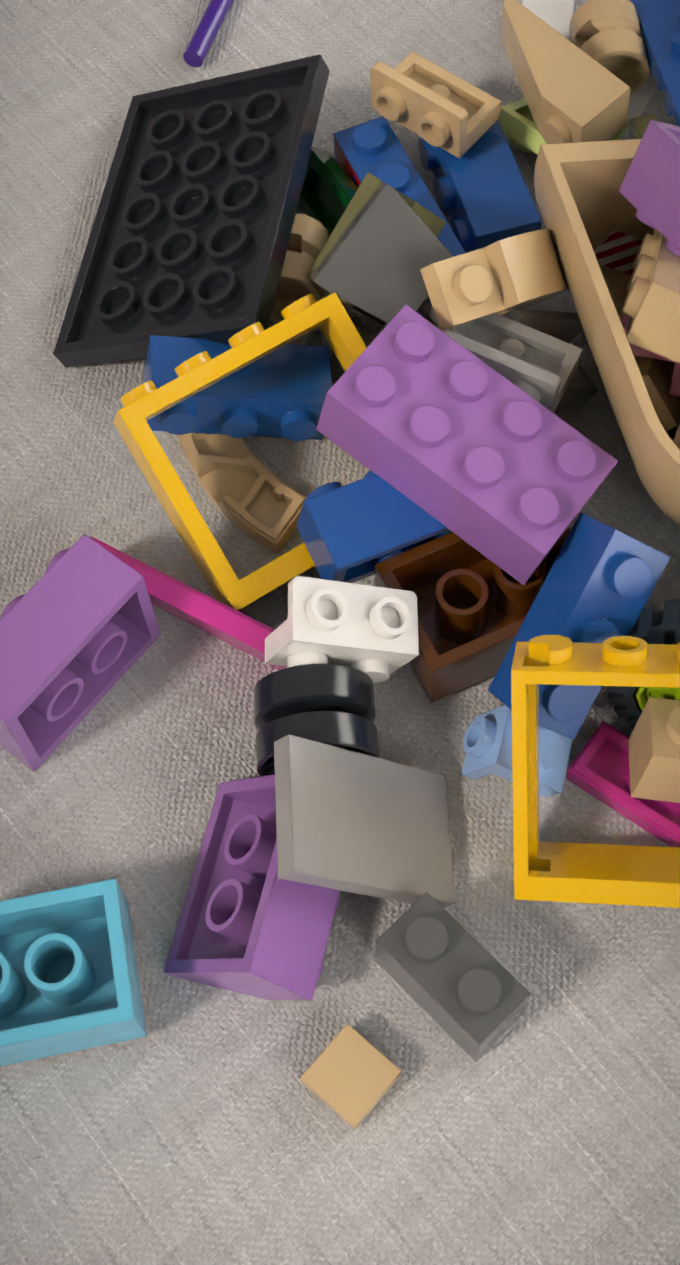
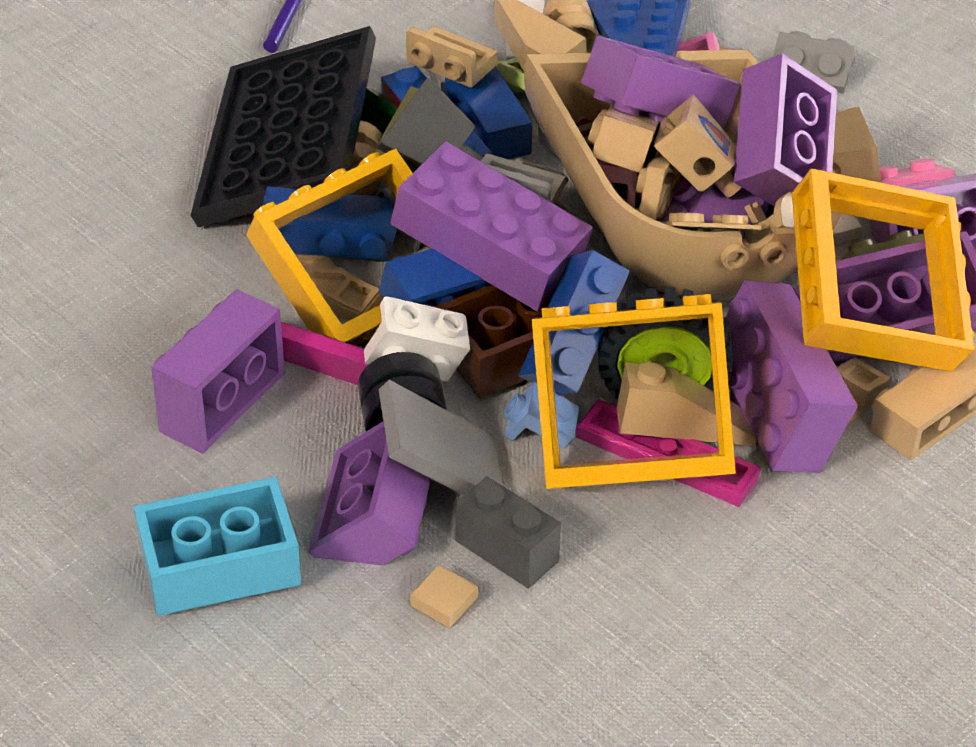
camera: 10 degrees left, 20 degrees down
(495, 279) = (507, 133): tan arch -> none

